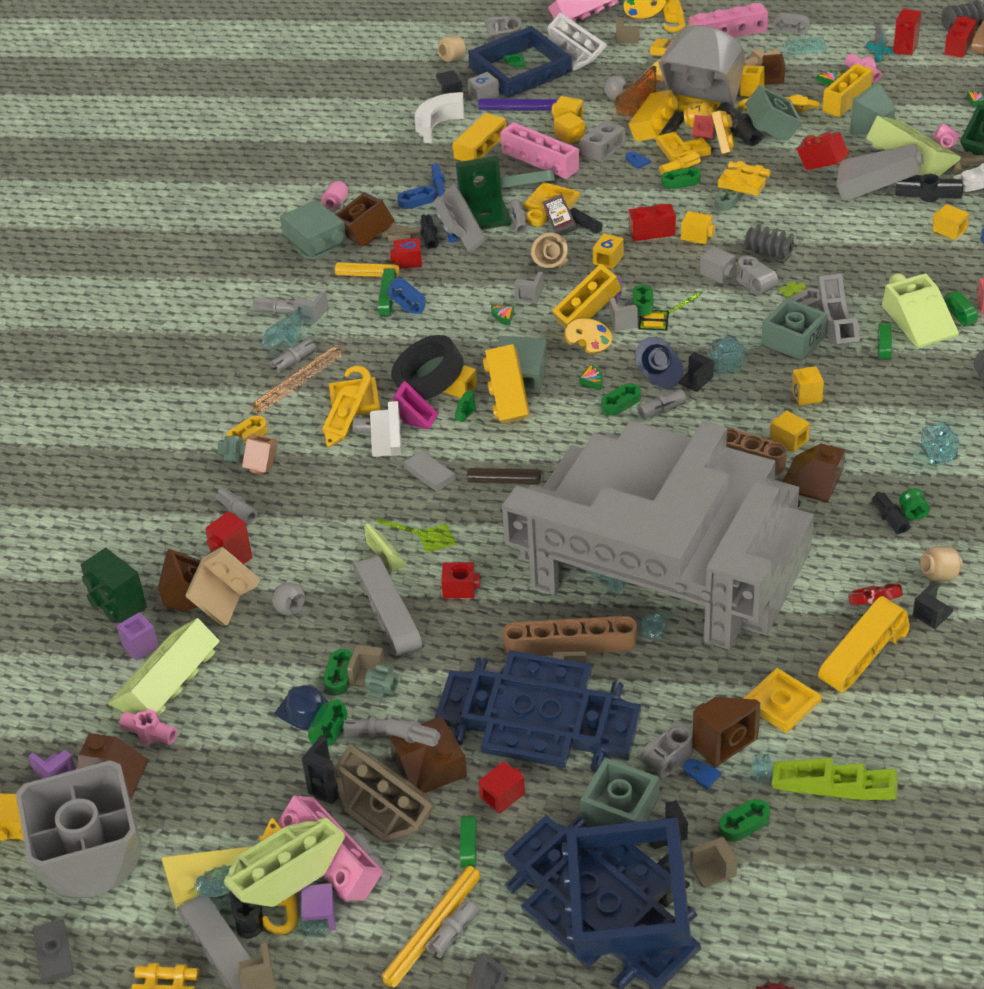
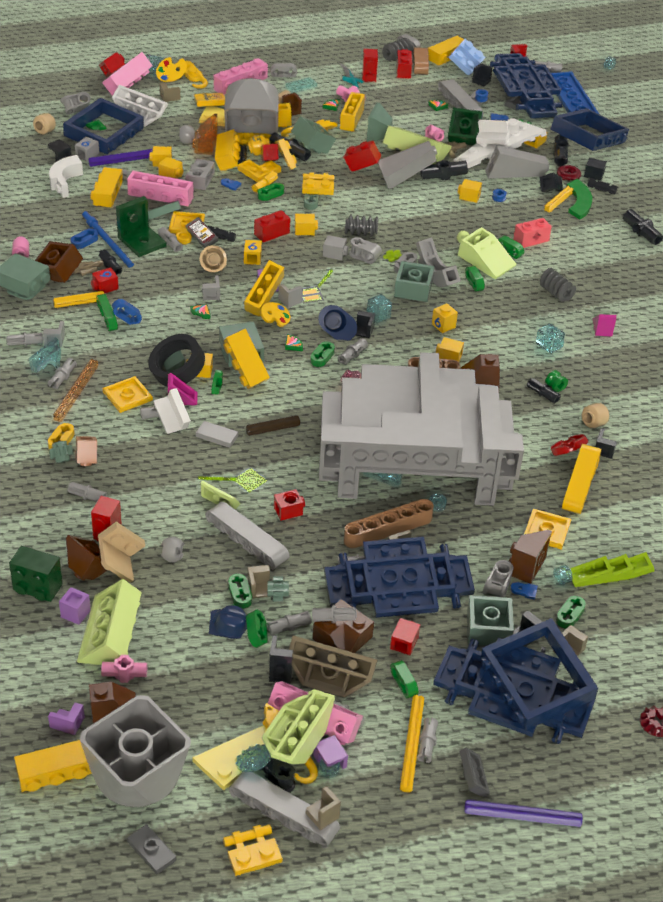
camera: 30 degrees left, 0 degrees up
(346, 407) = (131, 402): yellow plate -> none
(458, 218) = (131, 248): light grey bracket -> none
(643, 299) = (296, 279): green beam -> none

